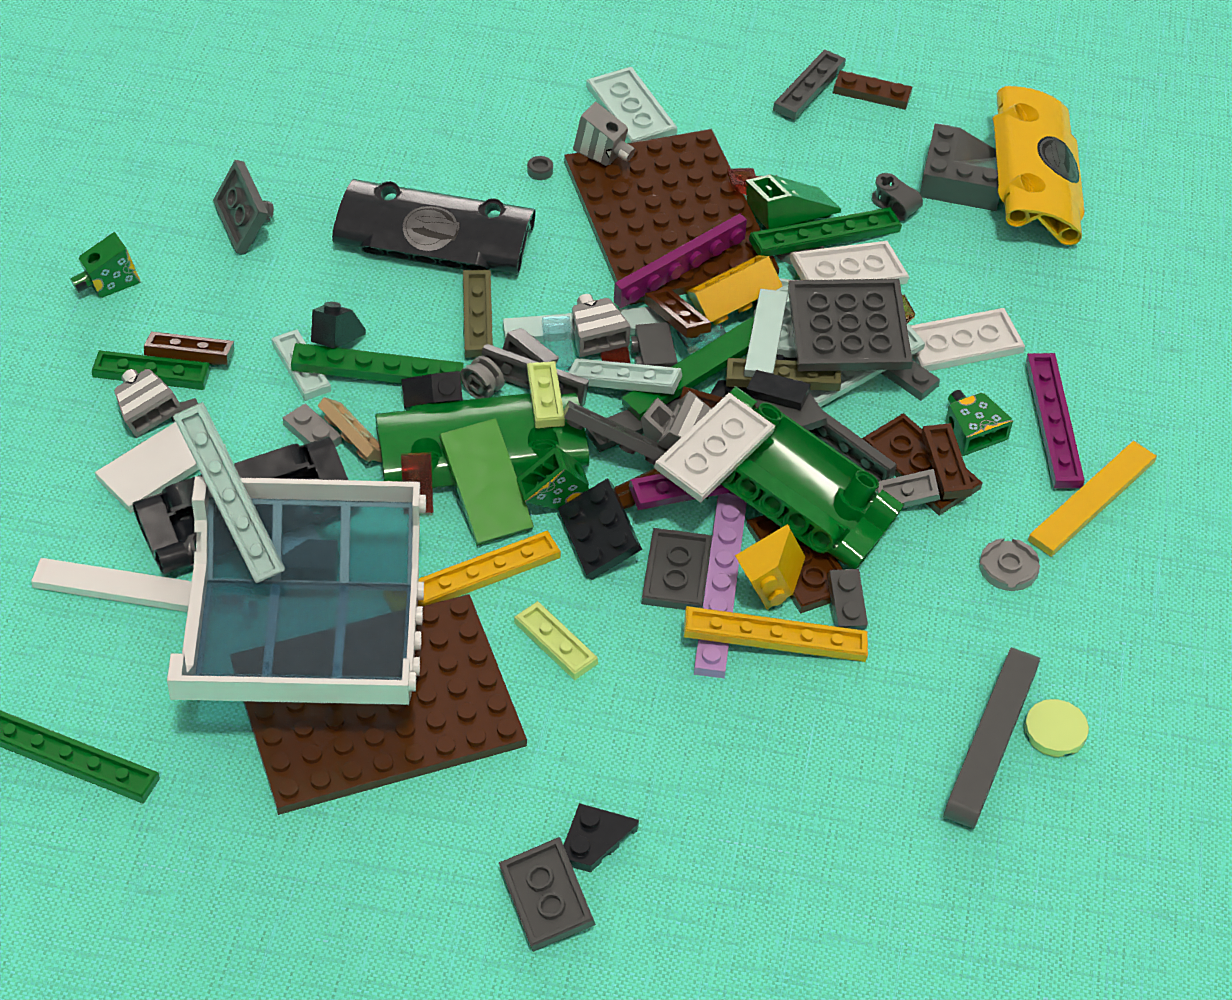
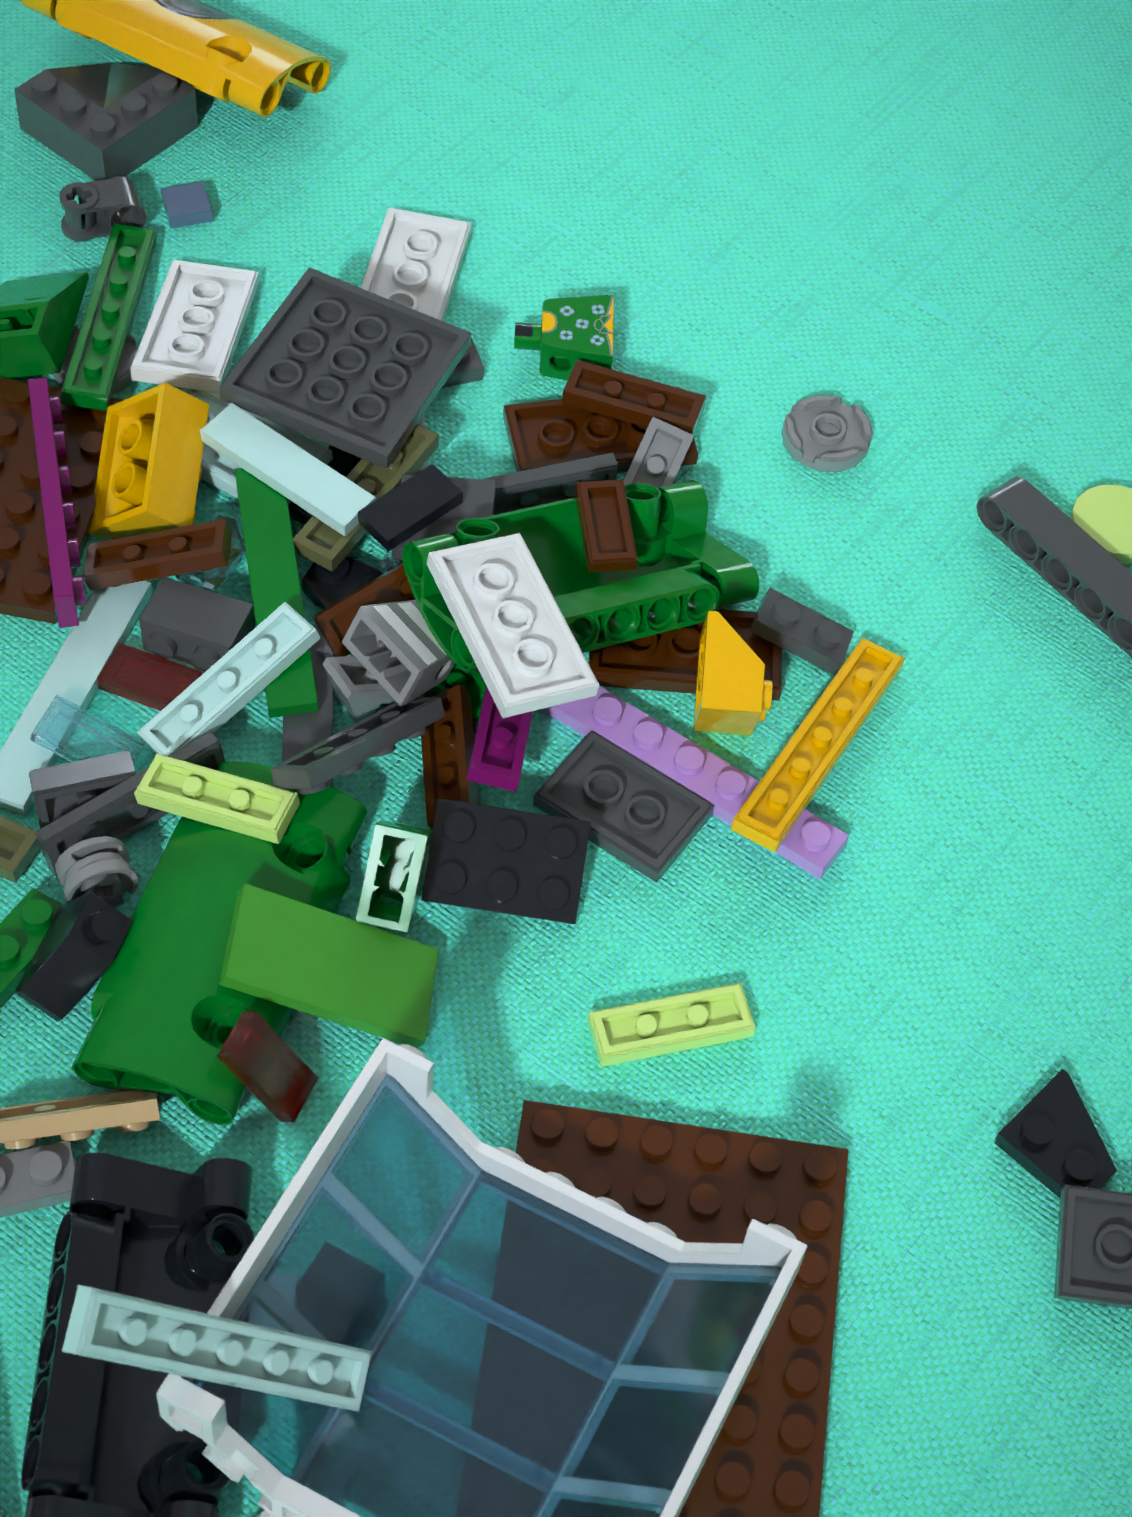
camera: 65 degrees left, 5 degrees up
(489, 568) = (480, 1035): yellow tile -> none
(598, 326) = (101, 667): light grey torso -> none
(828, 471) = (605, 526): none -> reddish brown tile
(933, 229) = (186, 204): none -> sand blue tile
(1054, 421) = (619, 260): magenta plate -> none
(1092, 498) = (769, 297): yellow tile -> none

